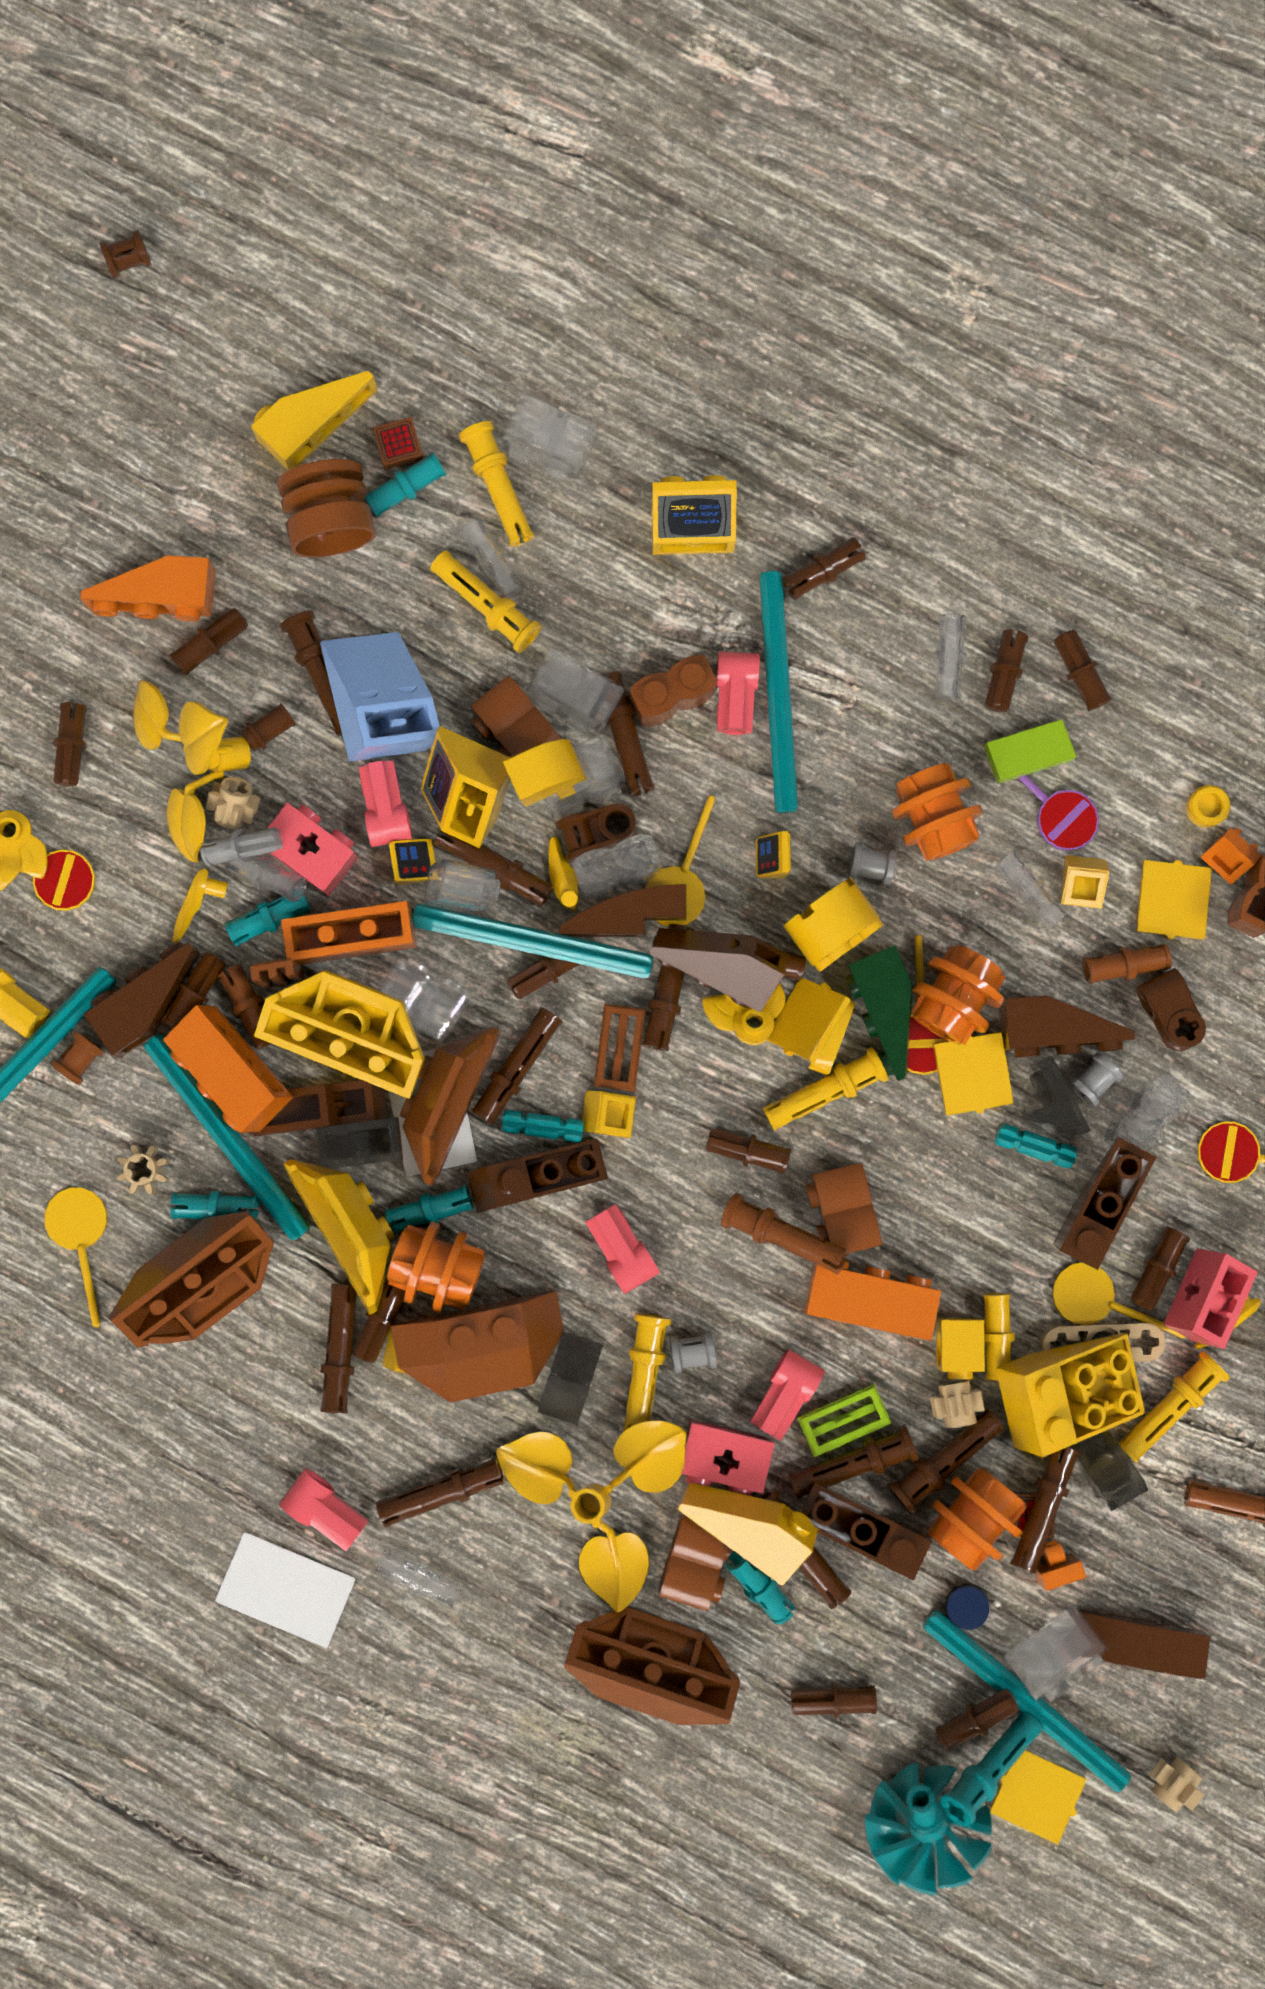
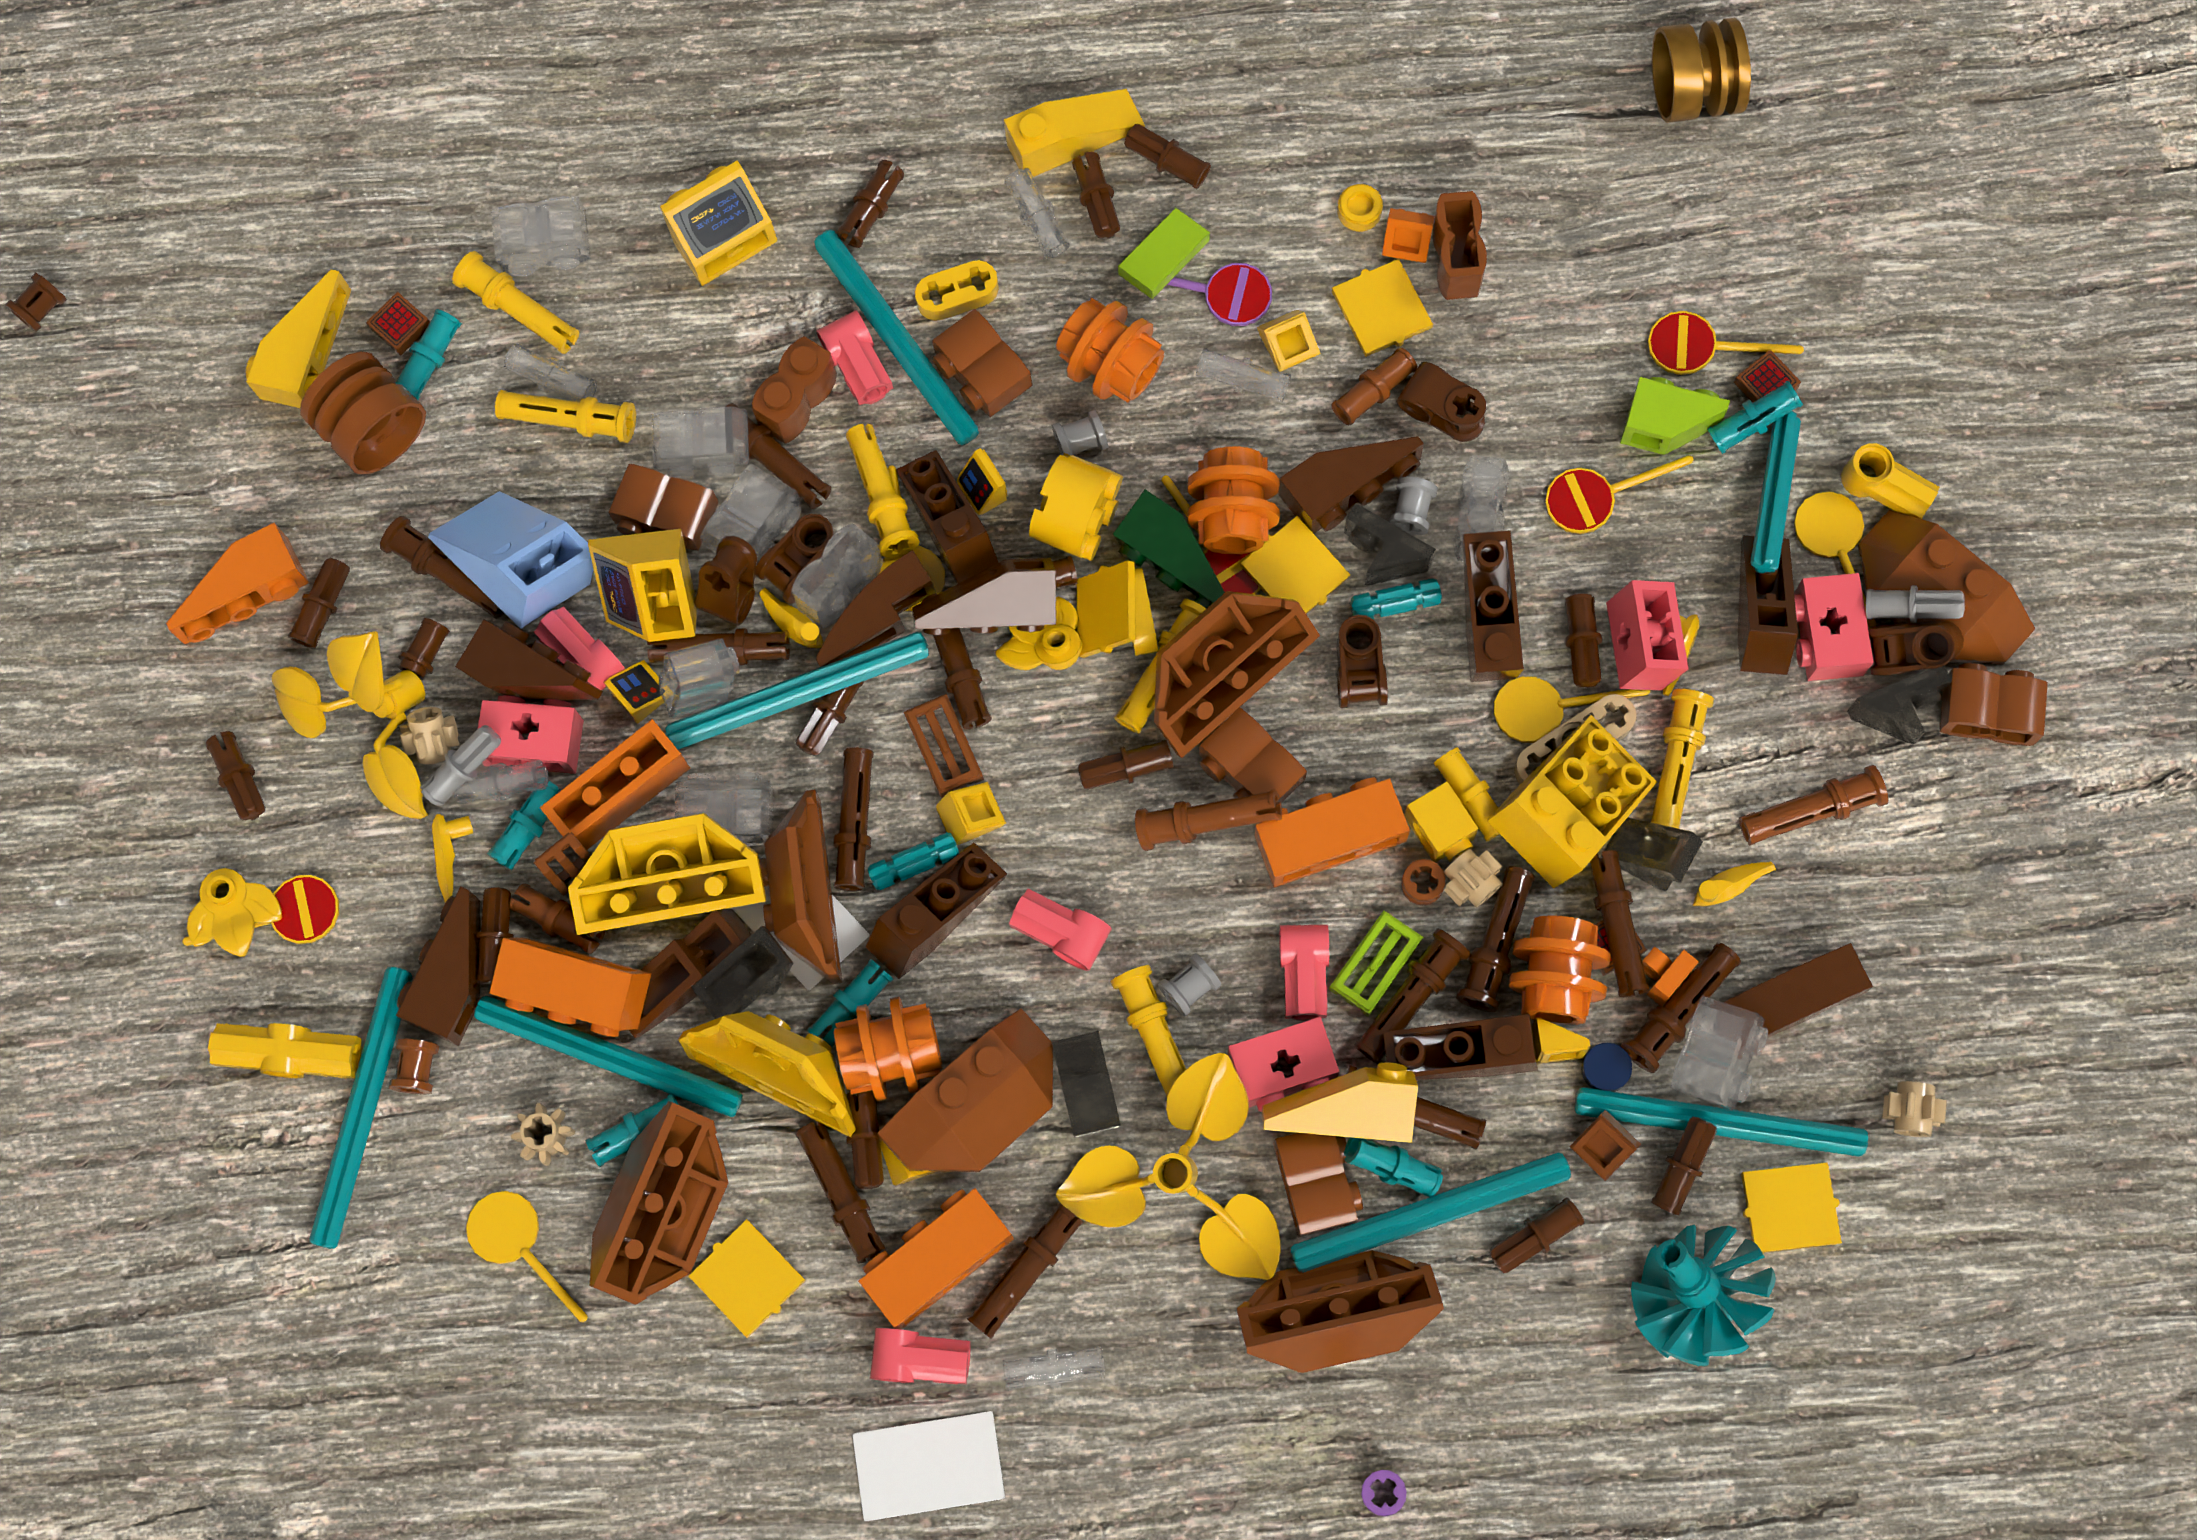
camera: 20 degrees left, 10 degrees down
(233, 1369) = (747, 1278): none -> yellow piece
(324, 784) = (512, 667): none -> reddish brown slope
(378, 1443) = (935, 1258): none -> orange brick
(529, 825) = (728, 581): none -> reddish brown piece
(545, 771) = (713, 516): yellow brick -> none
(616, 1823) = (1399, 1492): none -> medium lavender bush
(687, 832) = (886, 507): none -> yellow pin
(730, 868) = (947, 516): none -> reddish brown slope
(768, 1634) = (1430, 1212): none -> teal axle
(831, 757) = (981, 364): none -> dark orange brick
(852, 673) = (956, 290): none -> yellow beam
(870, 1124) = (1224, 662): none -> dark orange wedge
(928, 1666) = (1605, 1145): none -> dark orange tile
(931, 1380) = (1410, 888): none -> dark orange bush
(939, 1567) = (1557, 1043): none -> yellow slope
(975, 1185) = (1361, 672): none -> reddish brown piece
(981, 1780) = (1722, 1212): teal pin -> none
(1019, 601) = (1068, 128): none -> yellow slope
(1034, 1603) = (1668, 1022): none -> reddish brown pin
(1150, 1524) = (1730, 883): none -> yellow bar

